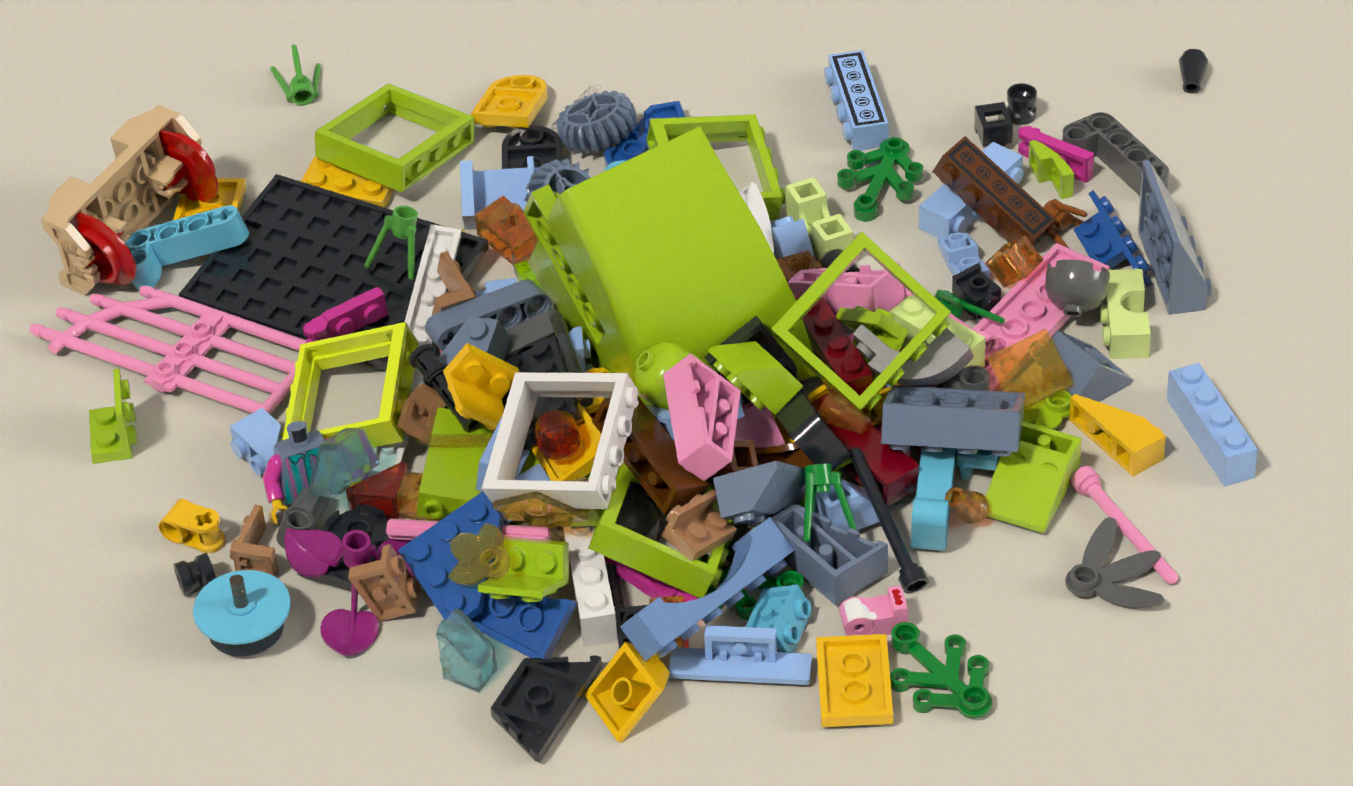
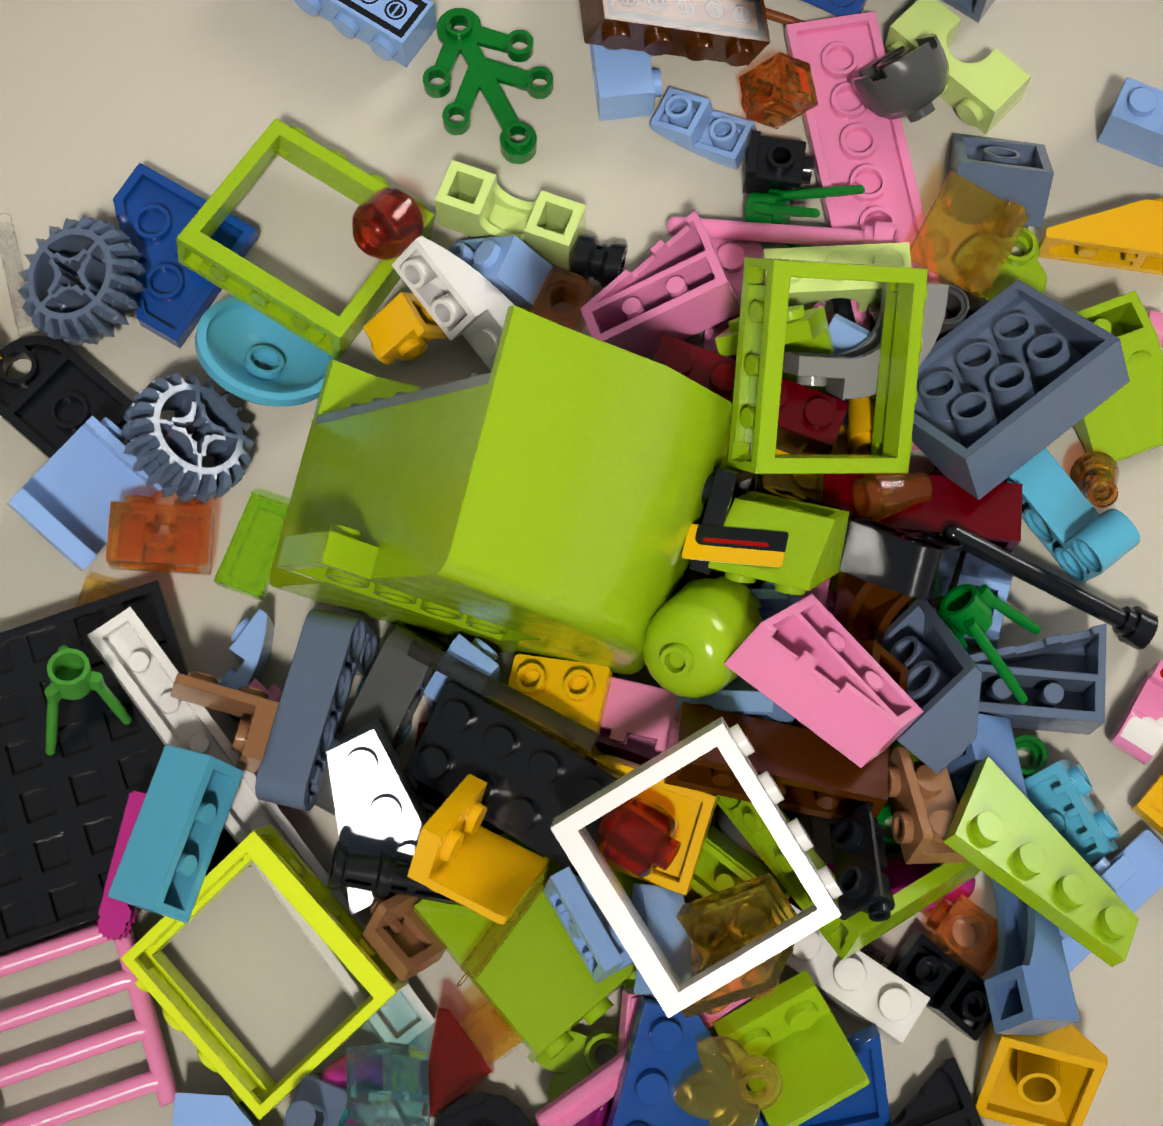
camera: 50 degrees left, 30 degrees up
(375, 305) = (176, 833): none -> medium azure brick
(639, 508) = (857, 863): none -> black hinge
(722, 581) = (1032, 860): none -> lime wing
(728, 348) = (735, 545): none -> sticker
(748, 169) = (387, 223): none -> clear red head

